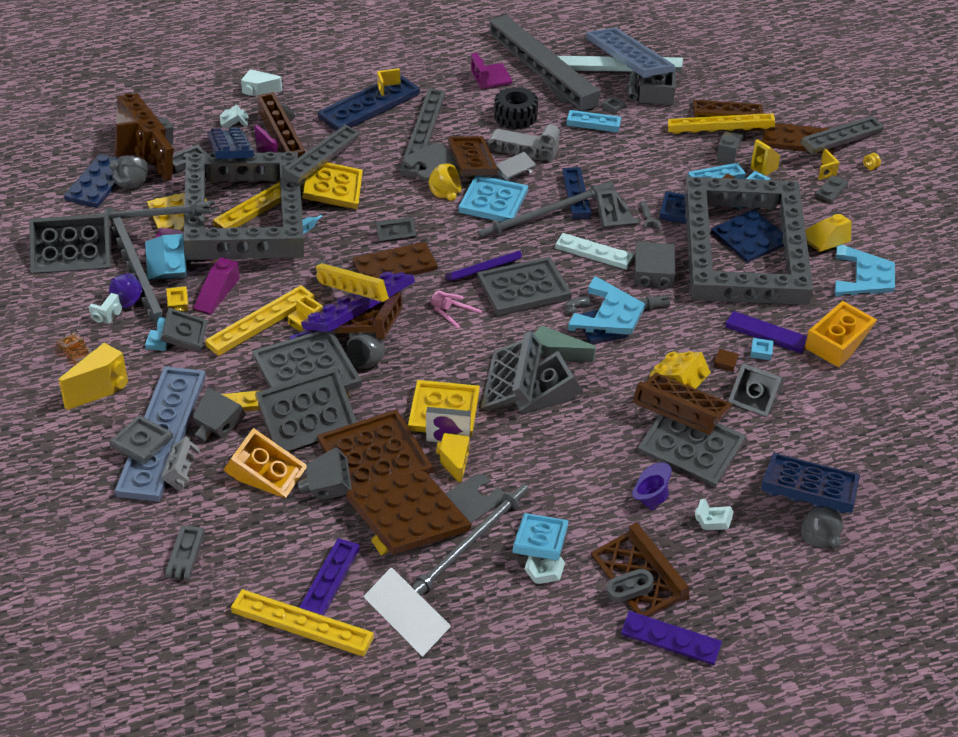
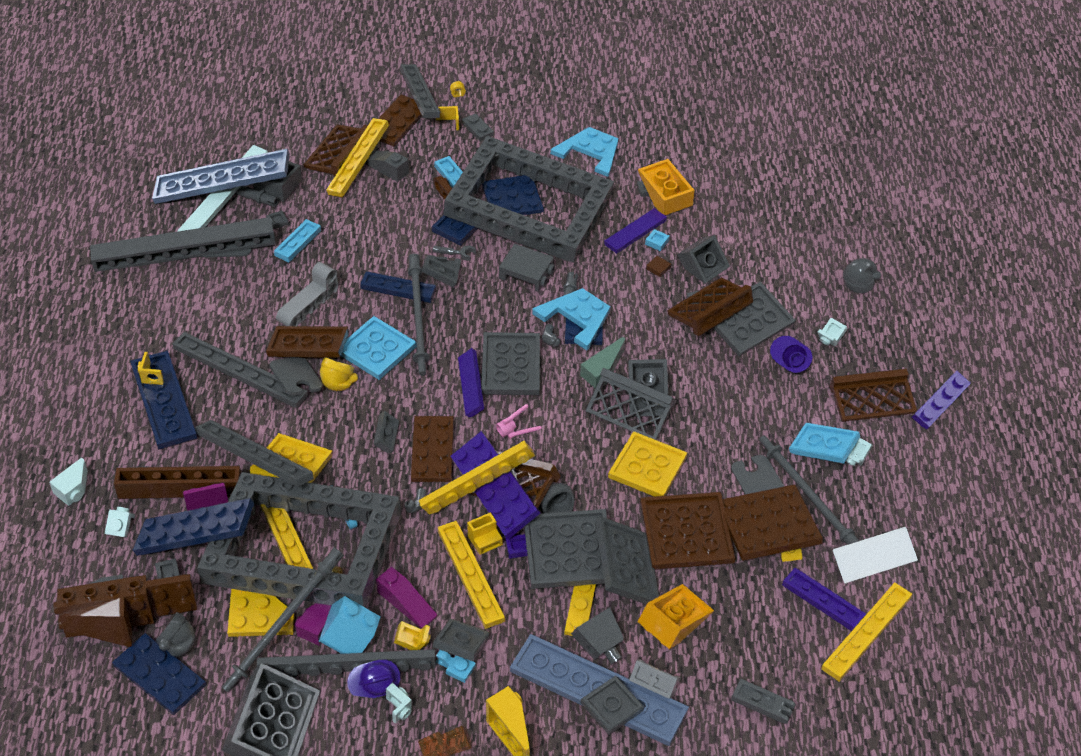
camera: 70 degrees left, 5 degrees up
(327, 476) = (712, 568): dark grey torso -> none
(446, 421) = (683, 463): tile -> none
(454, 454) = (711, 473): yellow slope -> none
(489, 75) = (173, 291): magenta bracket -> none
(514, 166) = (341, 314): light grey hinge -> none
(516, 108) = (249, 287): black tyre -> none
(594, 251) = (483, 302): light aqua plate -> none
(629, 585) = (891, 405): dark grey plate -> none
(685, 367) = (660, 296): yellow bracket -> none
(720, 171) = (423, 188): medium azure plate -> none
(764, 158) = (425, 149): yellow slope -> none
(811, 483) = (825, 262): dark blue plate -> none
(829, 232) = (540, 142): yellow slope -> none

